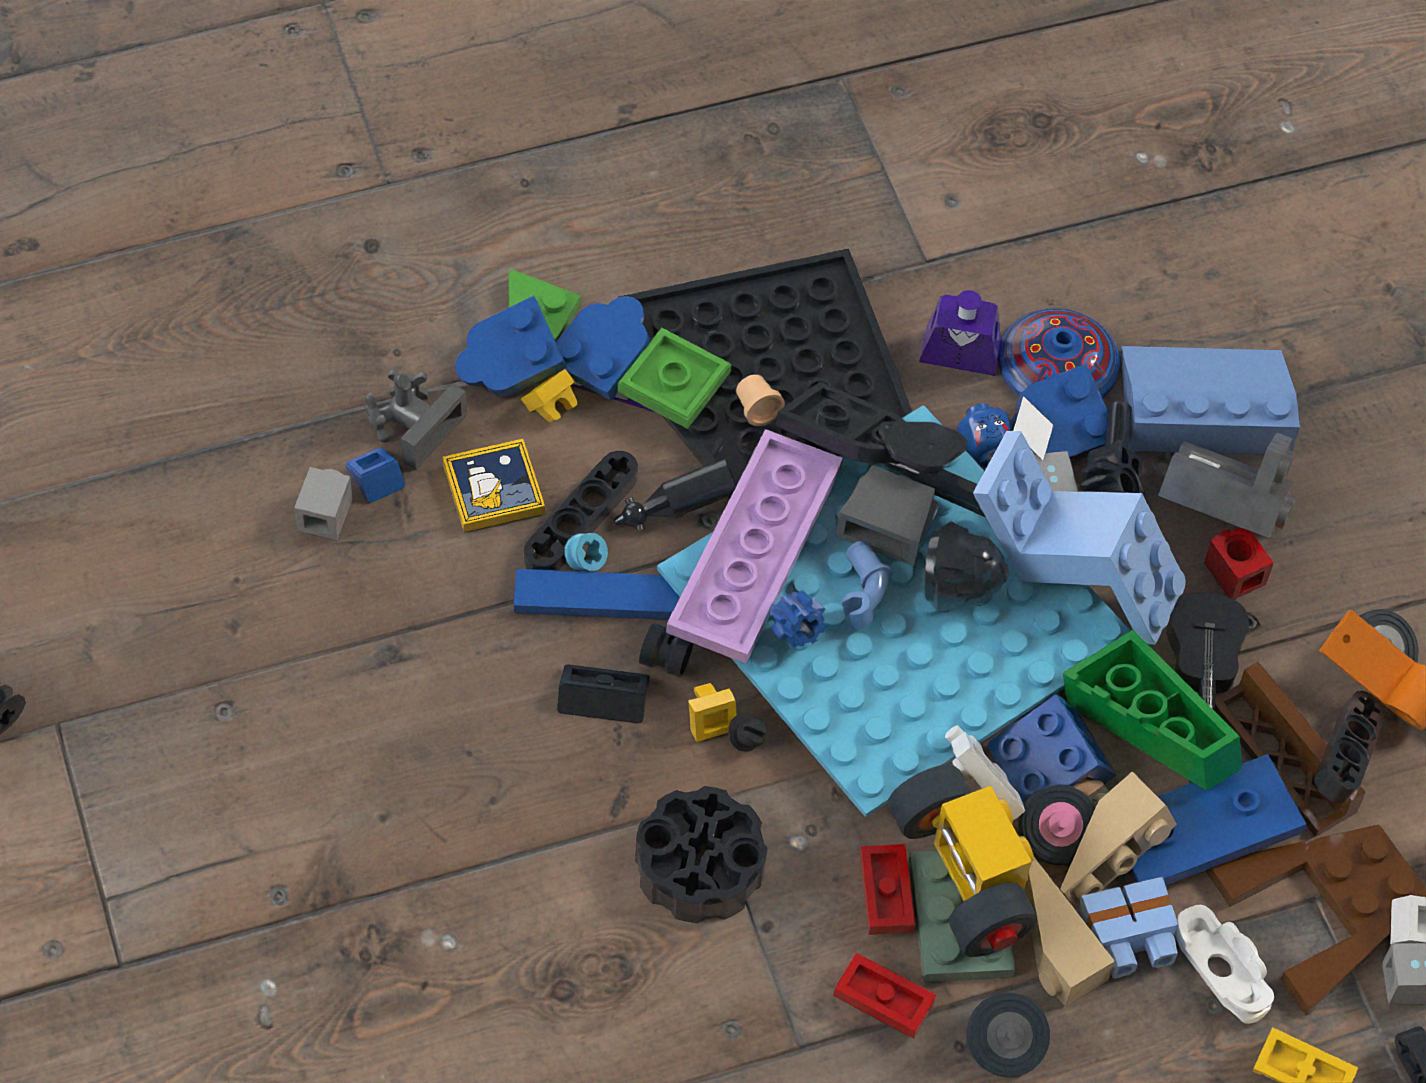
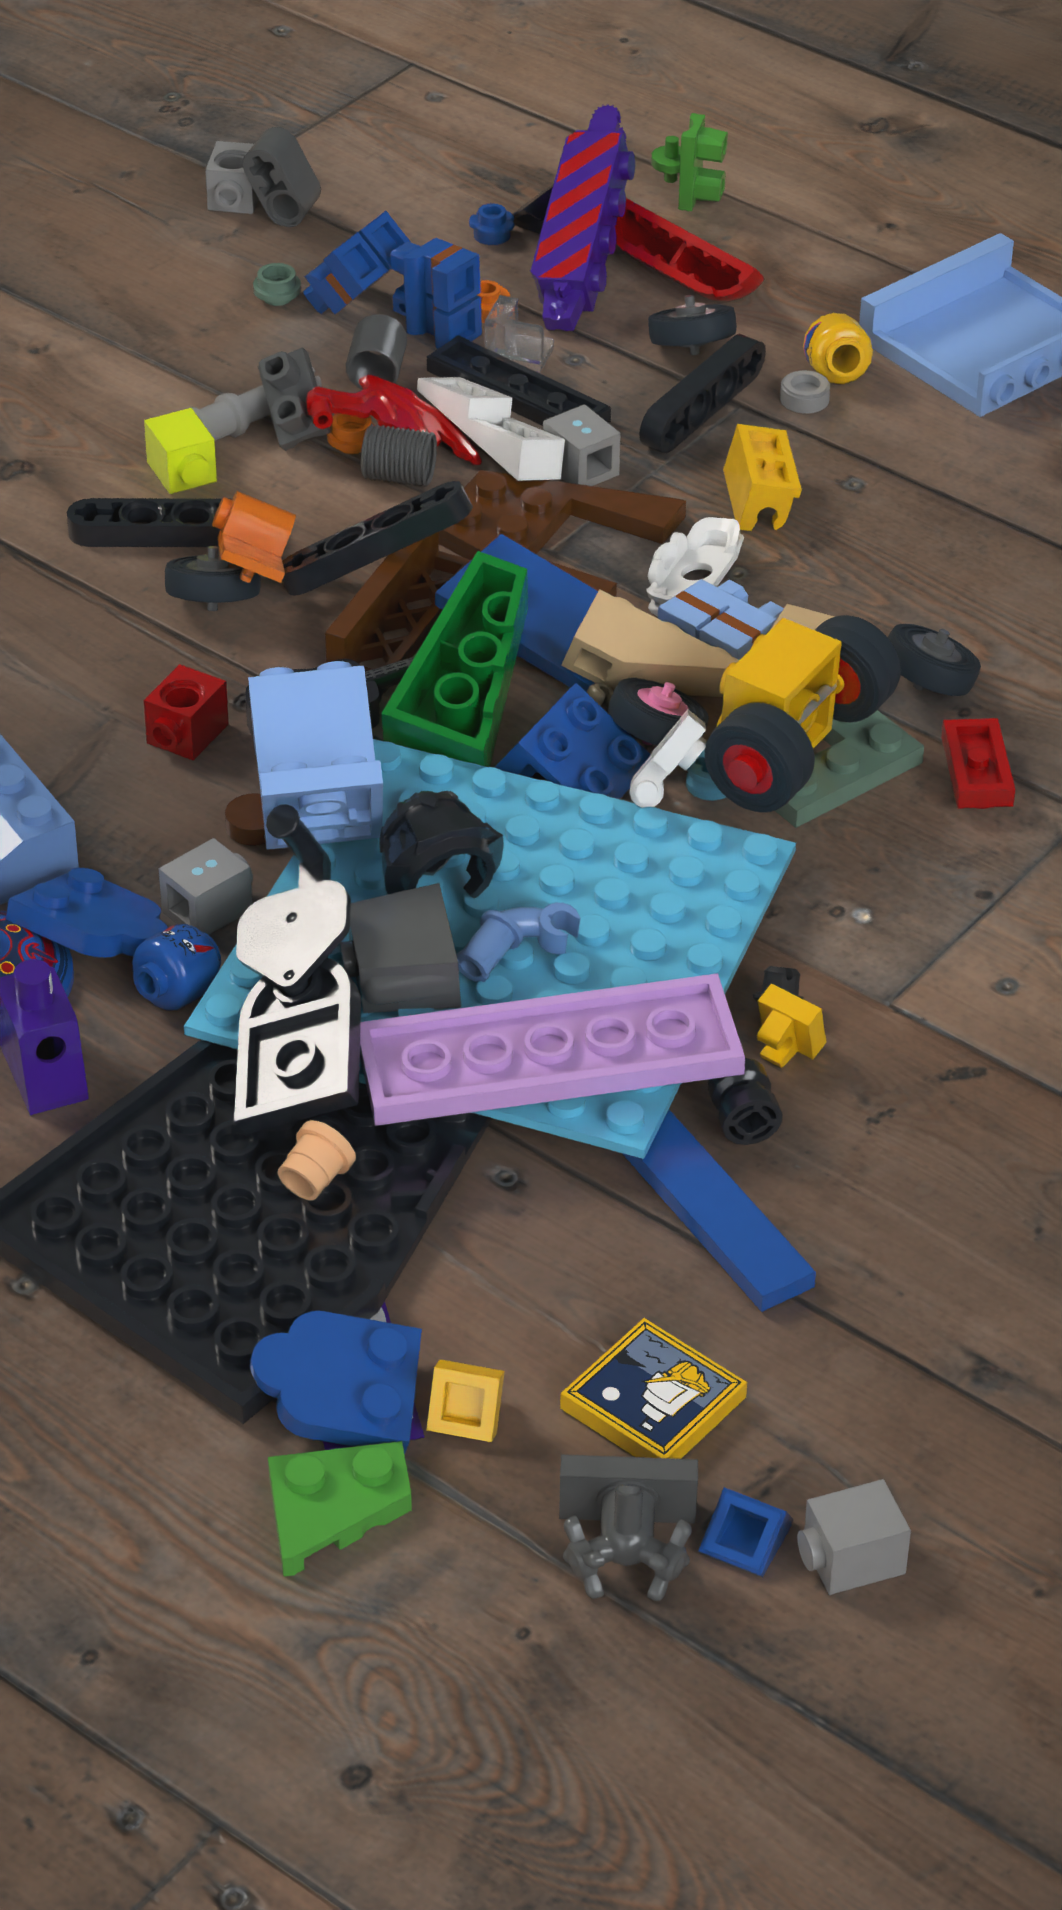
camera: 120 degrees left, 15 degrees down
(510, 350) = (435, 1469): blue plate -> none
(575, 554) = (678, 1239): medium azure bush -> none
(576, 510) = (617, 1276): black beam -> none
(603, 693) = (841, 1146): black slope -> none
(674, 378) = (340, 1267): bright green tile -> none
(682, 495) = (513, 1180): black wheel -> none
(729, 837) = (971, 955): black connector -> none
(798, 618) = (629, 951): blue gear -> none
(887, 889) = (857, 809): red plate -> none
(1034, 427) = (149, 906): white sticker -> none
(1115, 465) = (143, 832): black gear -> none
(1232, 489) = (98, 717): flat silver brick -> none

